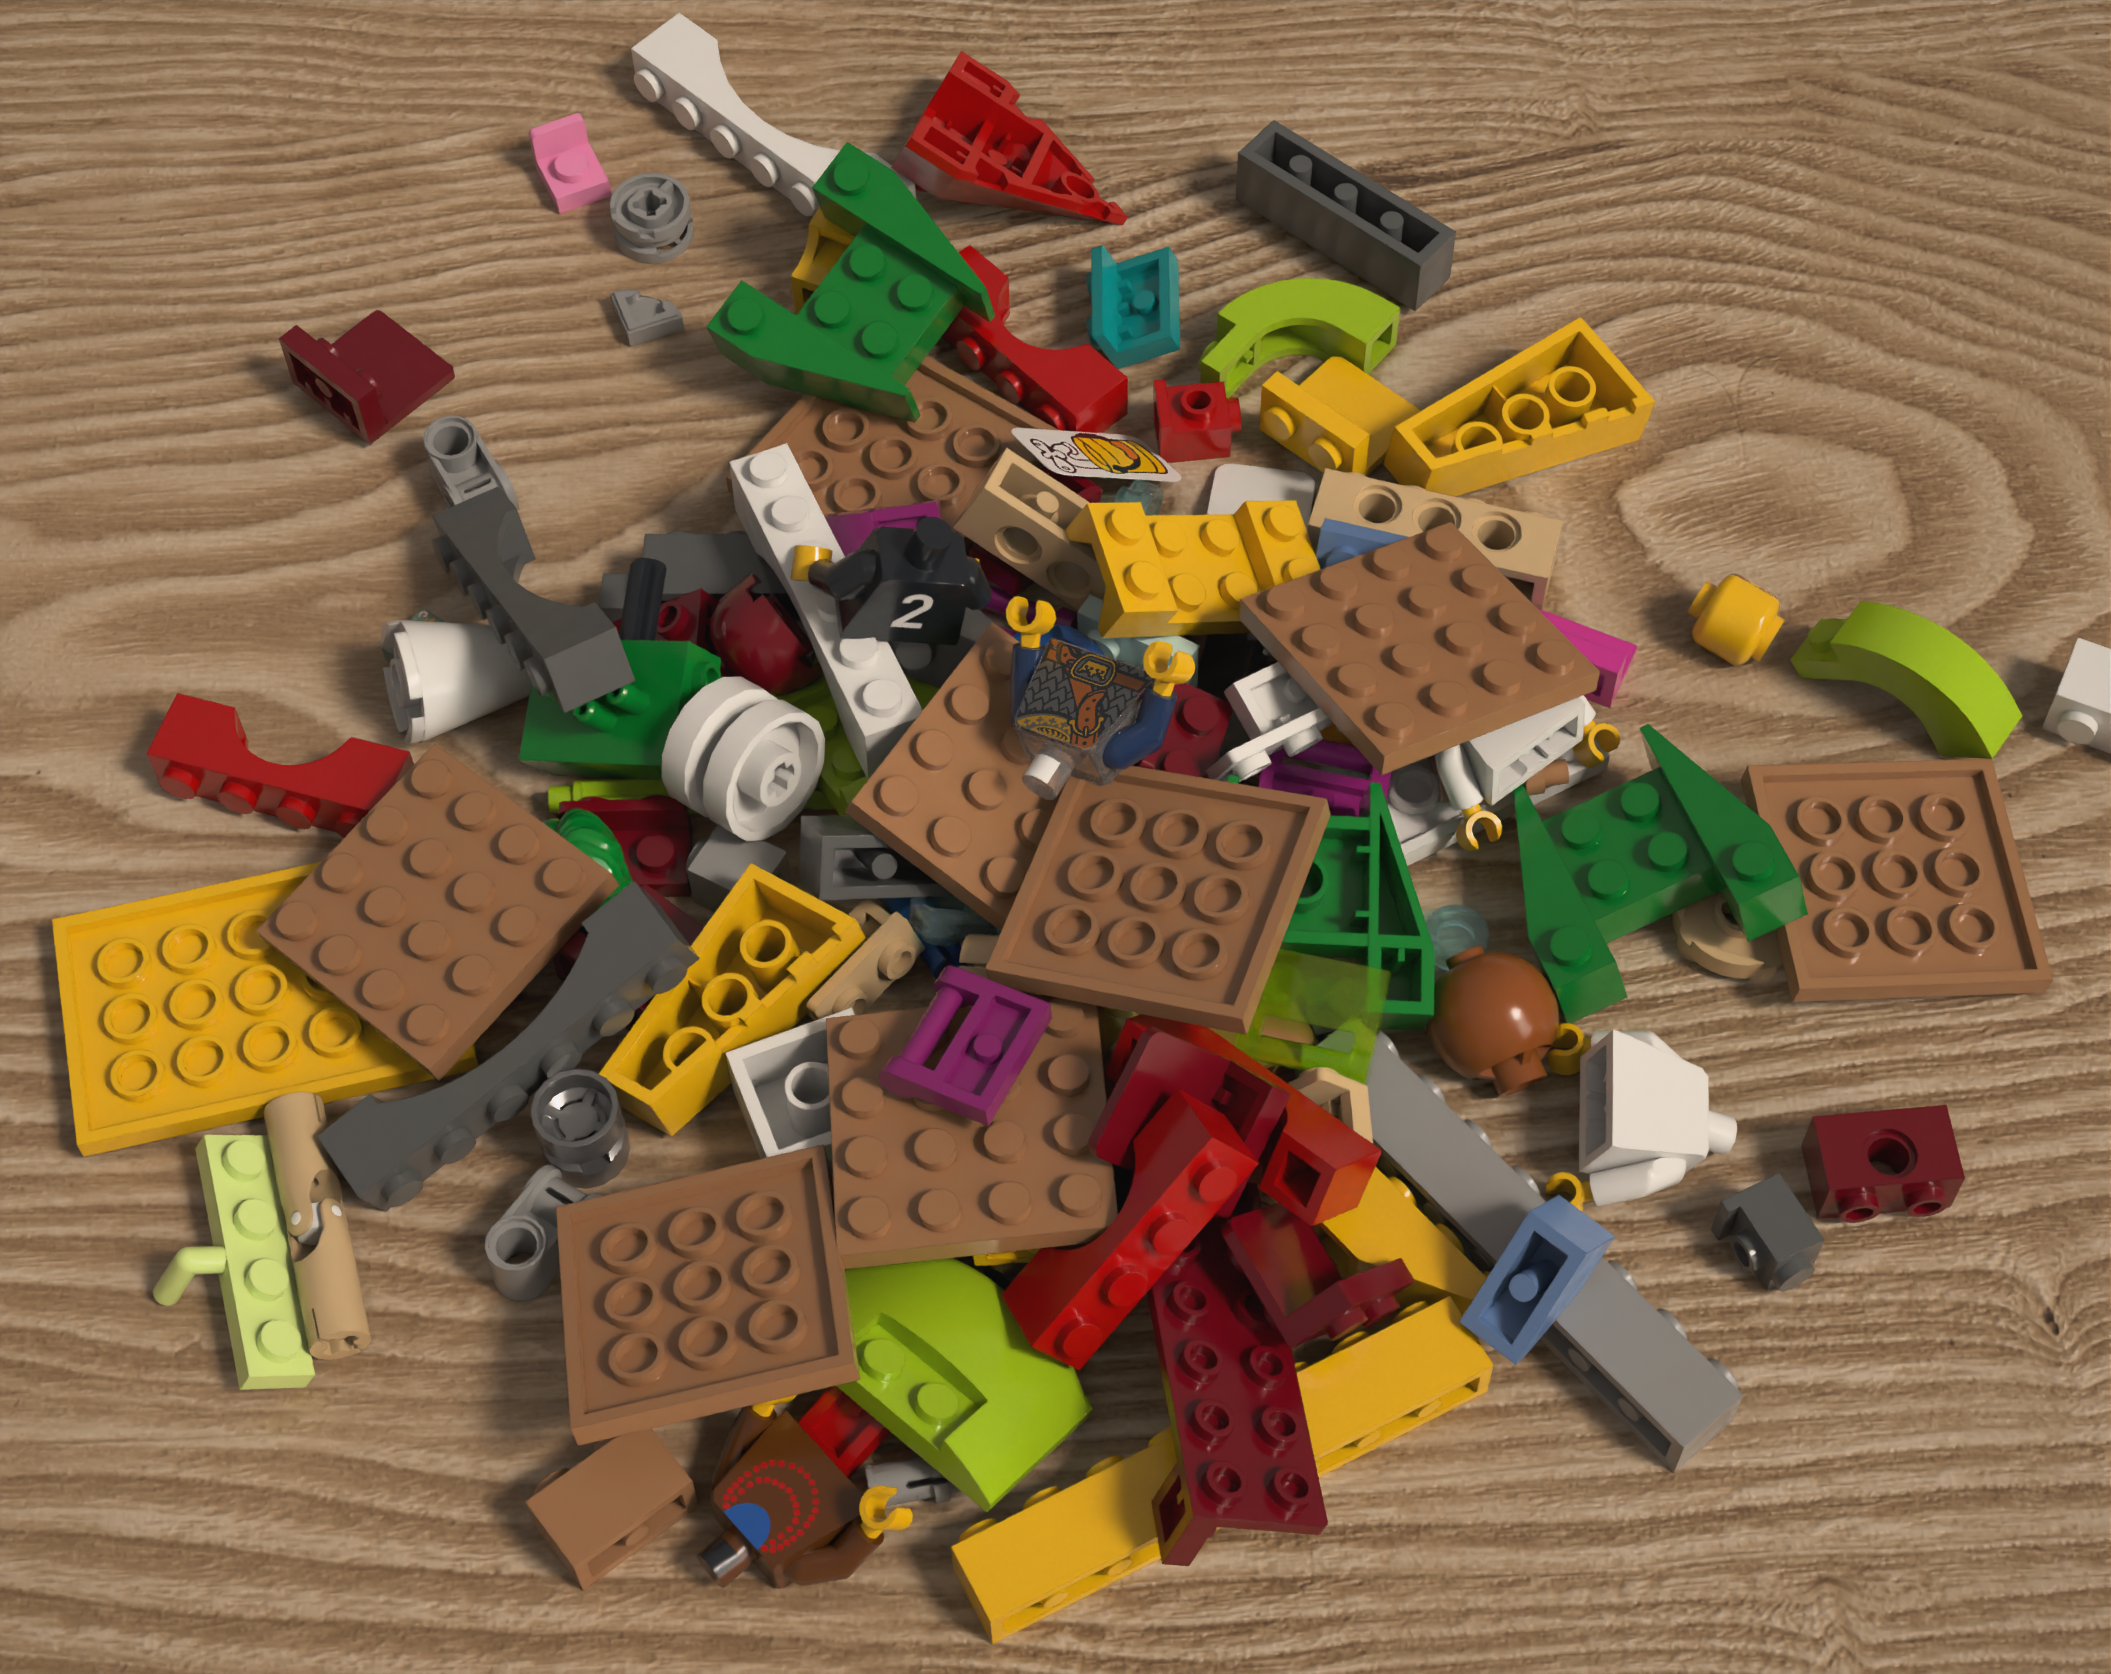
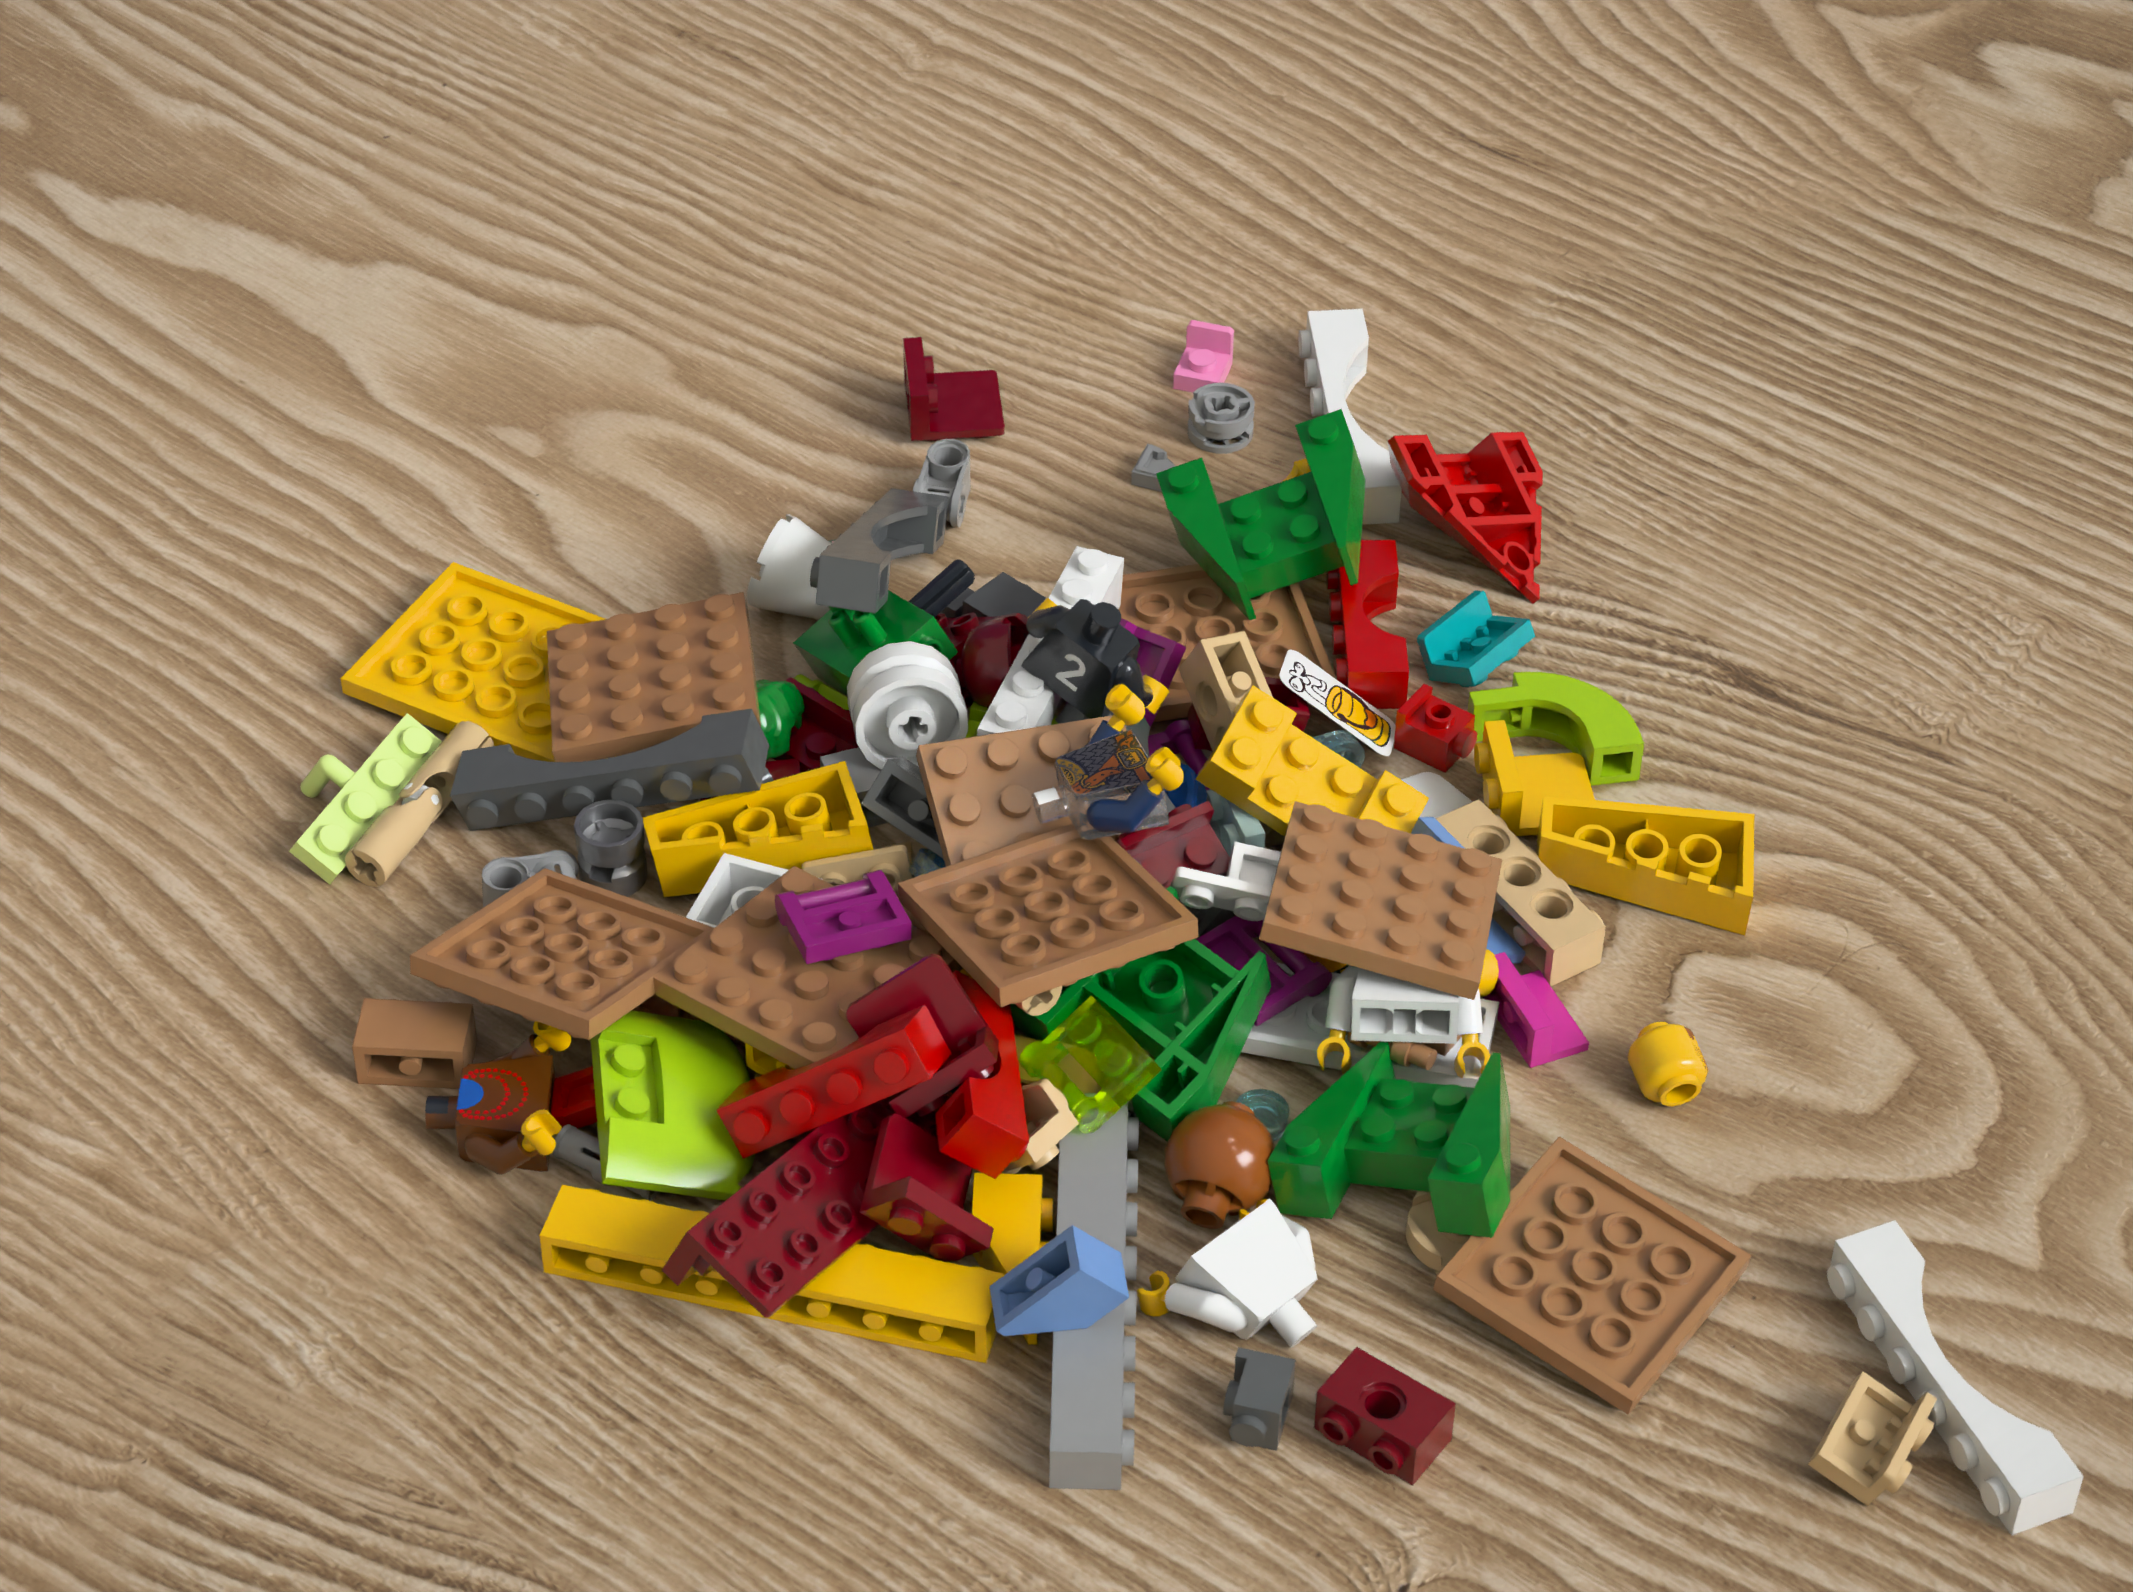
camera: 40 degrees right, 15 degrees down
(207, 756) = (633, 539): red arch -> none
(1345, 215) = (1676, 674): dark grey brick -> none
(1924, 667) = (1753, 1170): lime arch -> none

